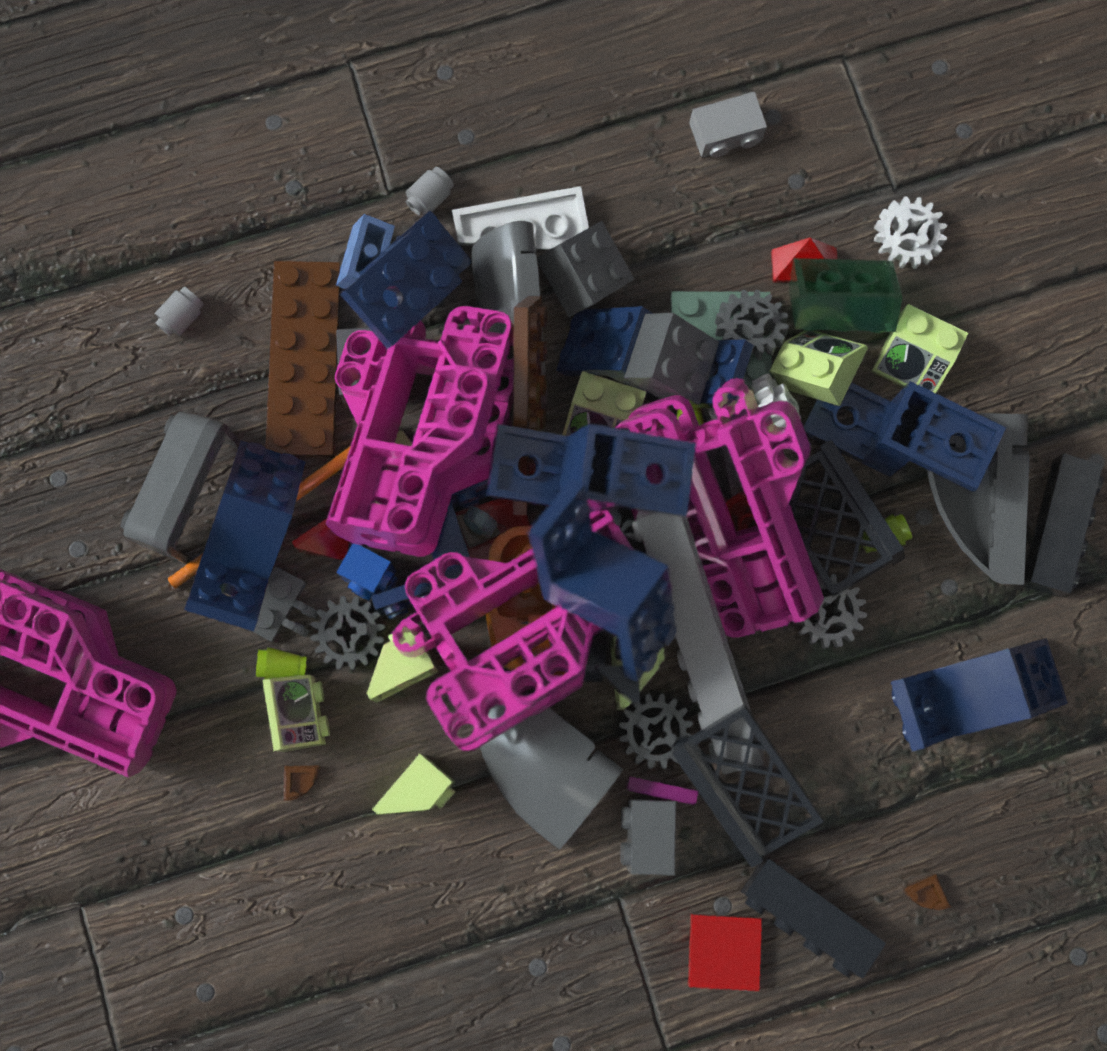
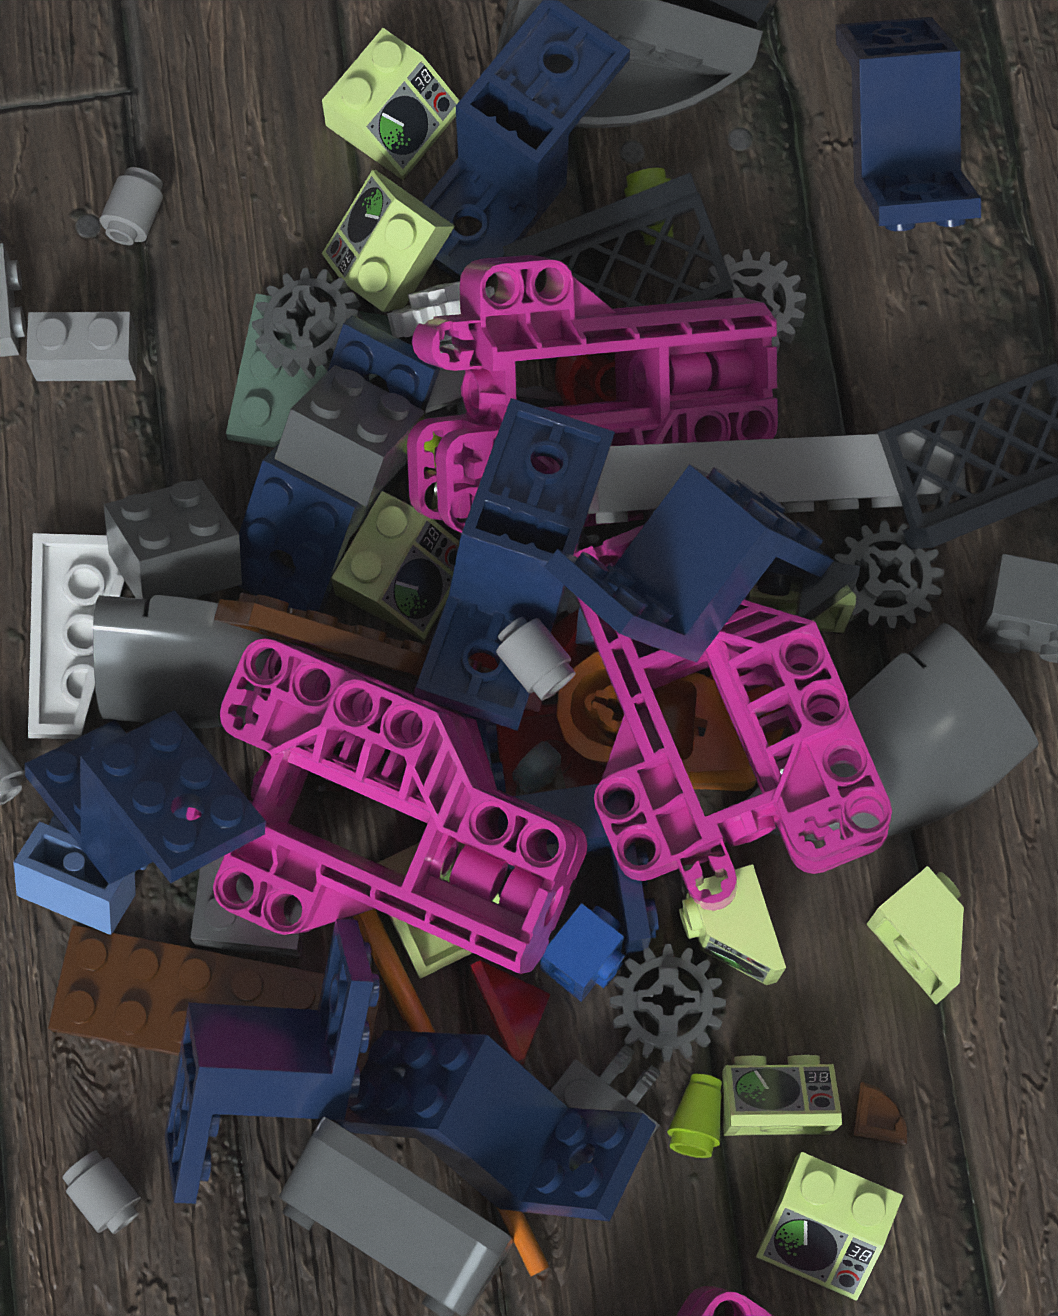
camera: 75 degrees left, 5 degrees down
(224, 758) = (829, 1225): none -> yellowish green slope
(260, 388) = (270, 1060): none -> dark blue bracket
(530, 495) = (535, 657): none -> light grey brick
(661, 790) = (975, 581): magenta tile -> none
(710, 191) = (82, 346): none -> light grey brick
(808, 248) = (220, 238): red slope -> none
(812, 203) = (132, 206): none -> light grey brick
(844, 295) = (289, 184): clear green brick -> none
(910, 218) = (224, 63): white gear -> none

